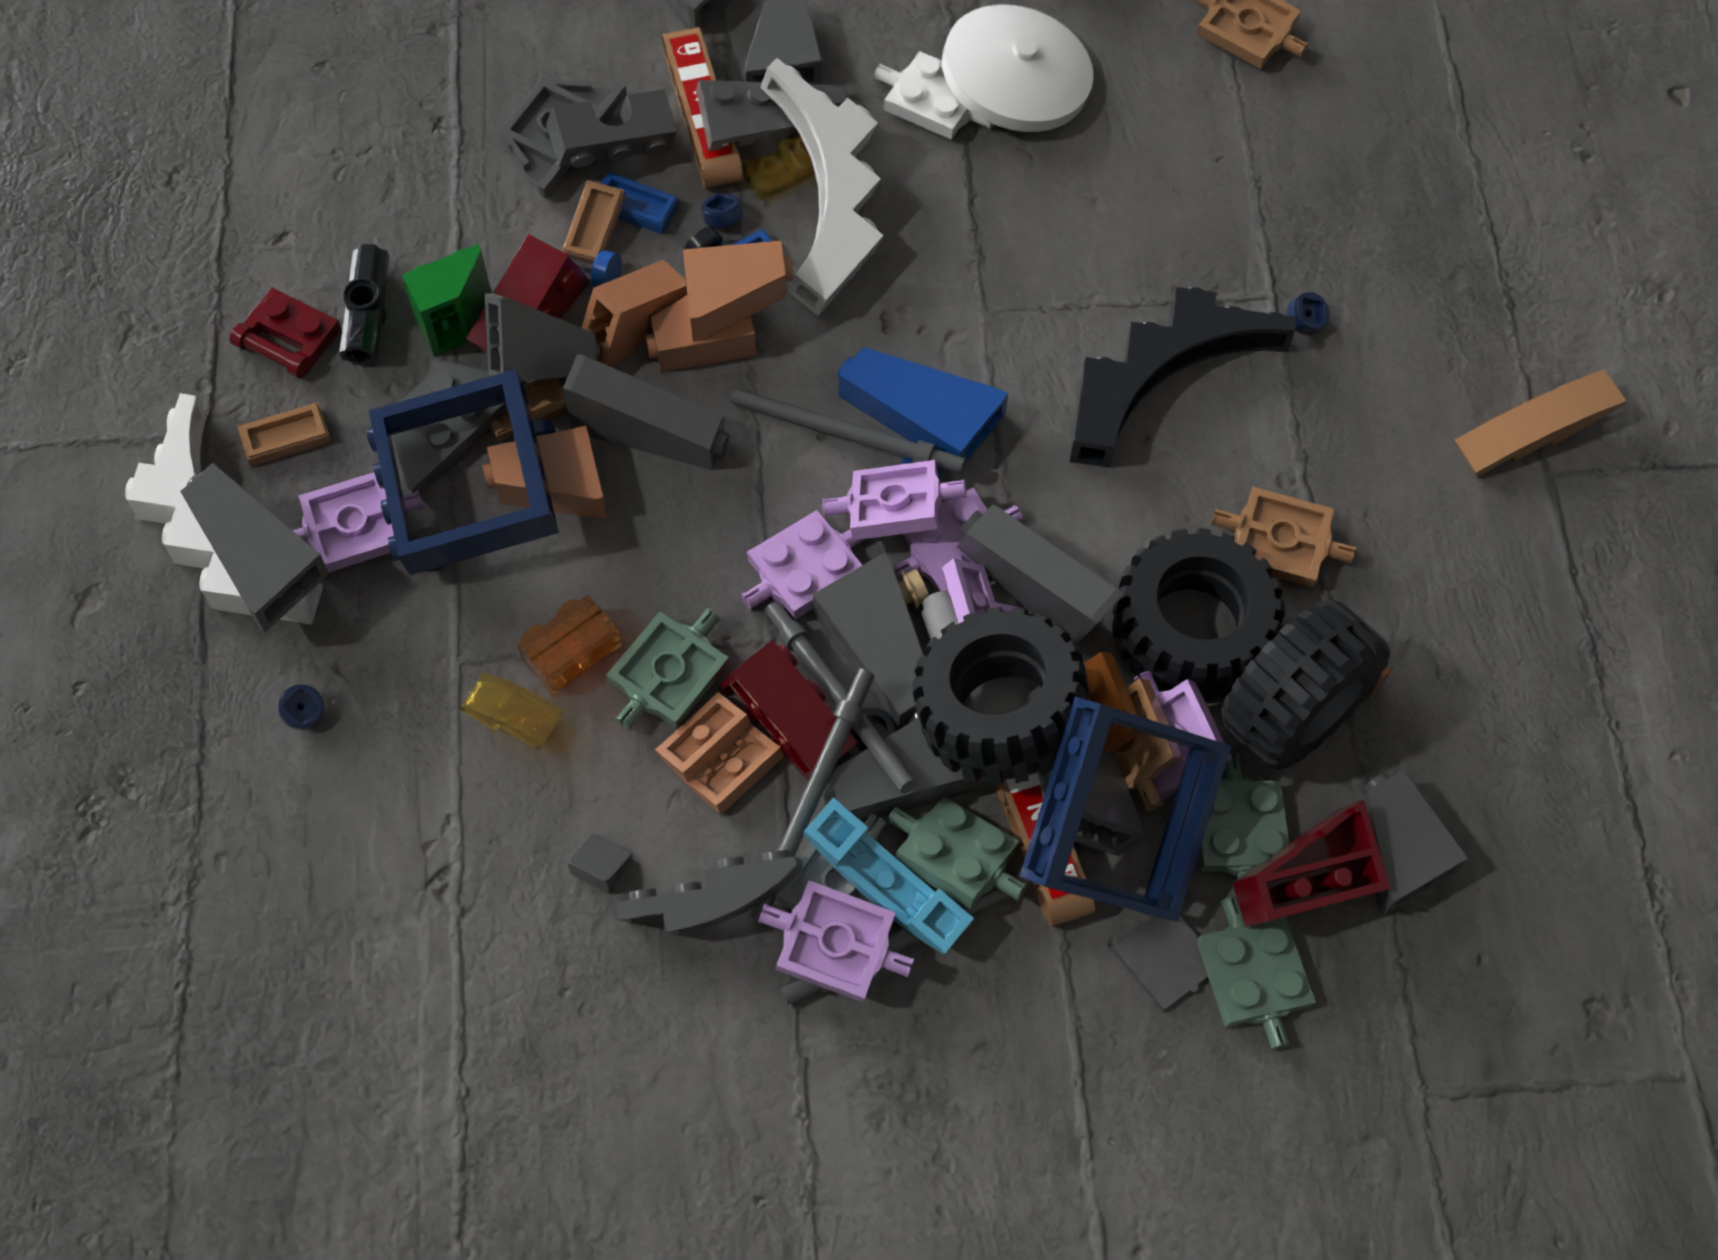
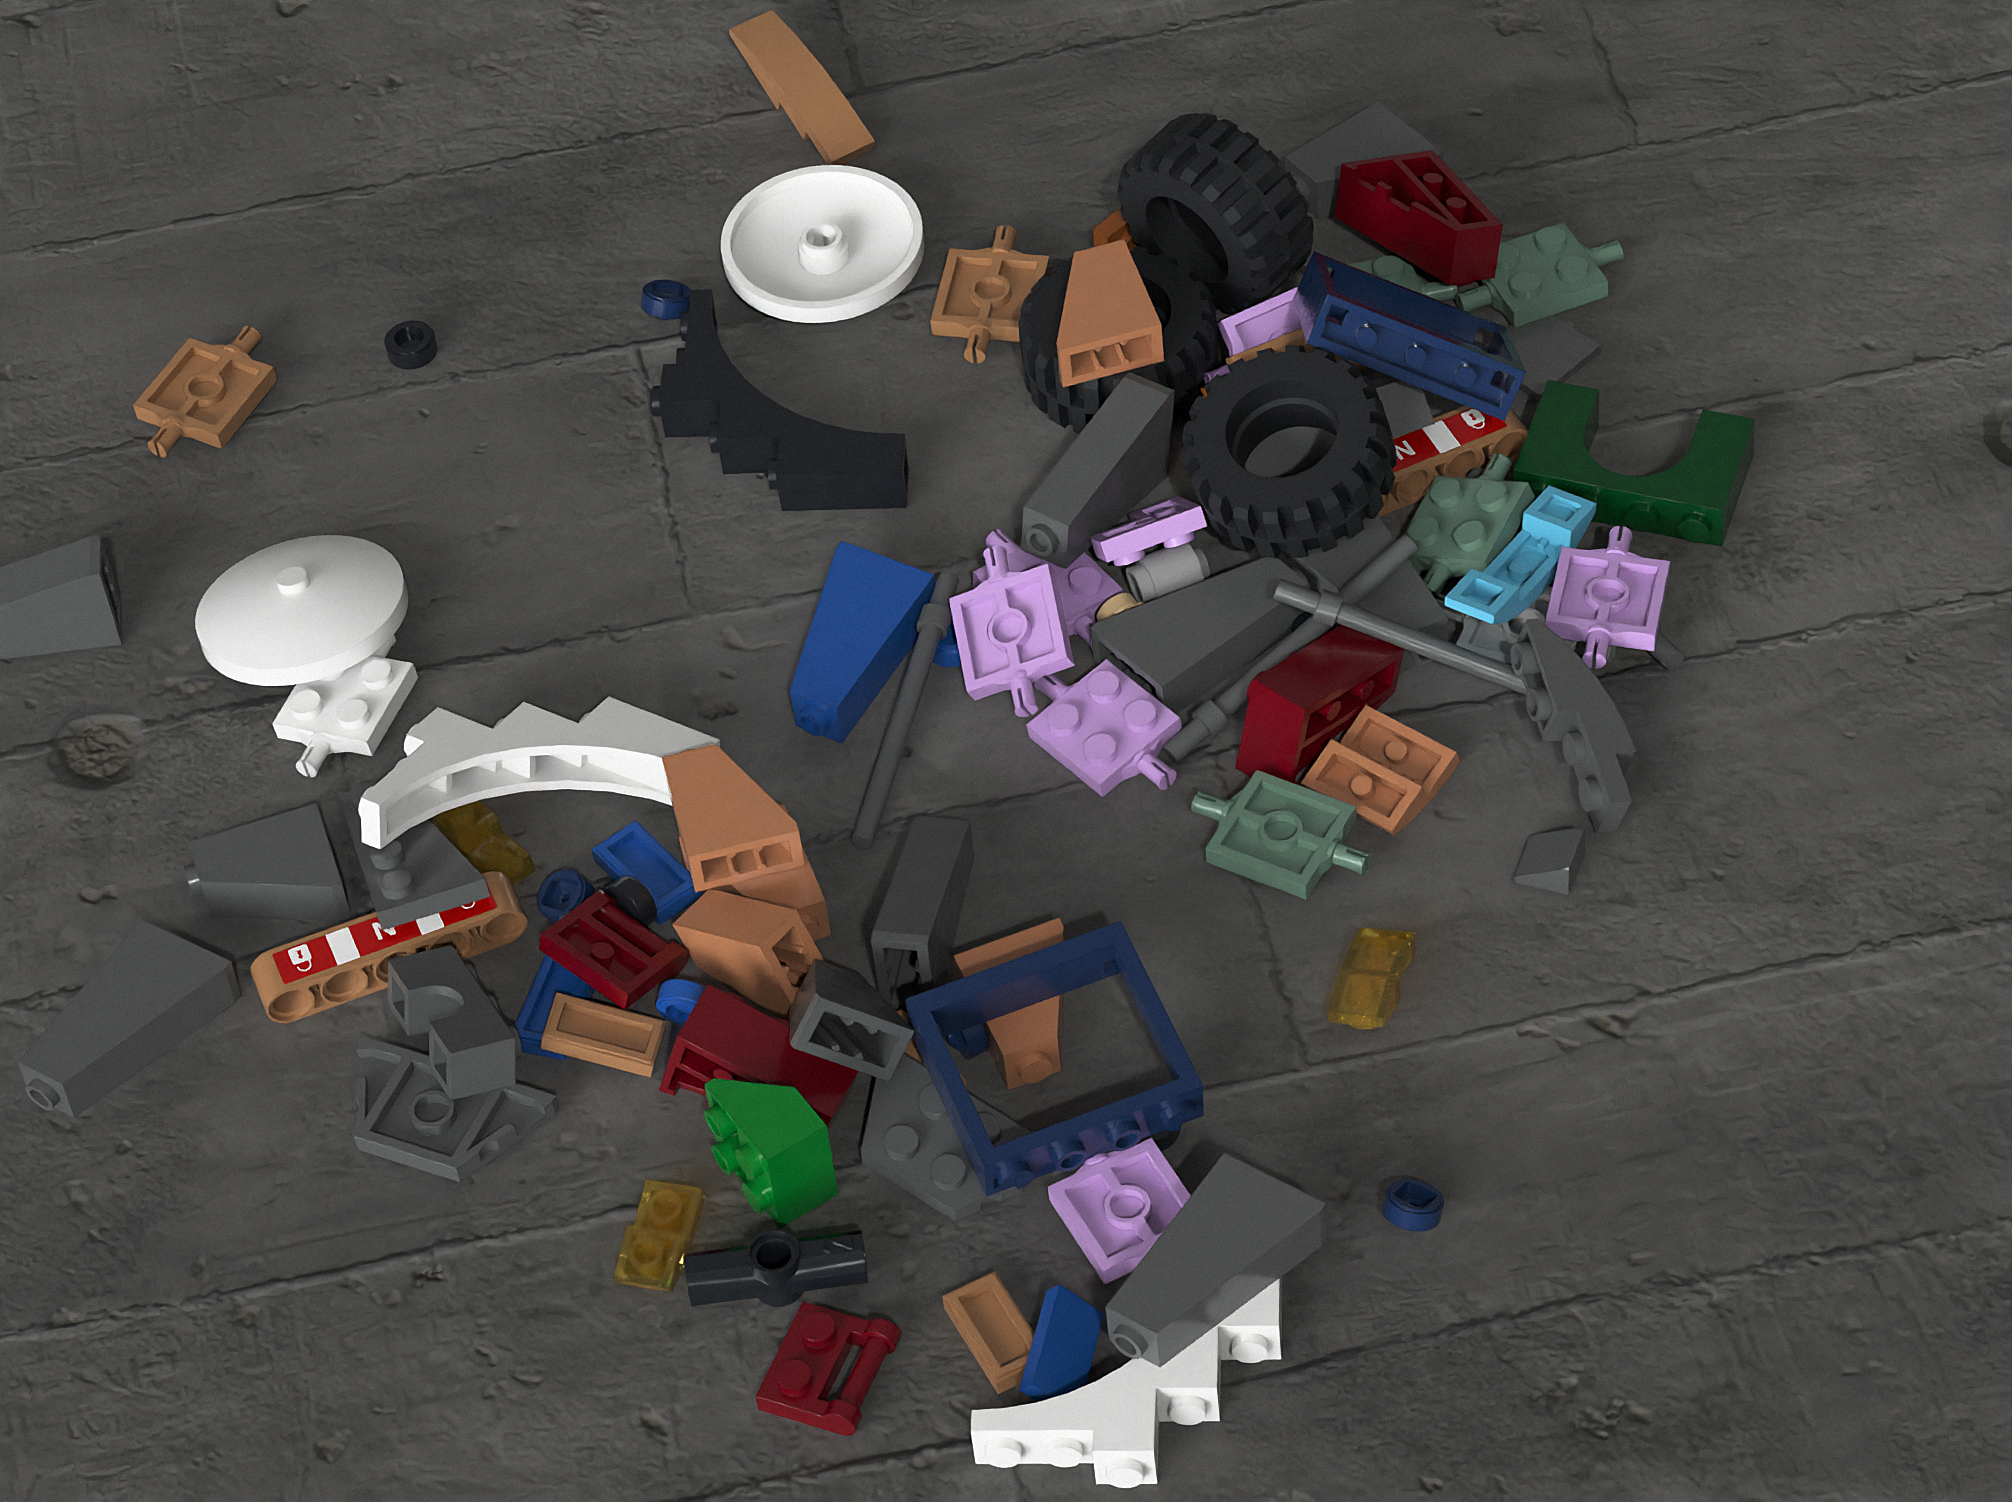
camera: 90 degrees left, 15 degrees down
(247, 464) = (1061, 1345): none -> blue tile
(414, 244) = (660, 1237): none -> clear yellow slope
(568, 643) = (1268, 935): clear orange brick -> none
(651, 218) = (612, 950): none -> dark red plate
(1007, 939) = (1683, 502): none -> dark green arch
(1183, 577) = (1106, 317): none -> nougat slope
(1287, 151) = (411, 345): none -> black tile
(1345, 416) = (822, 243): none -> white dish

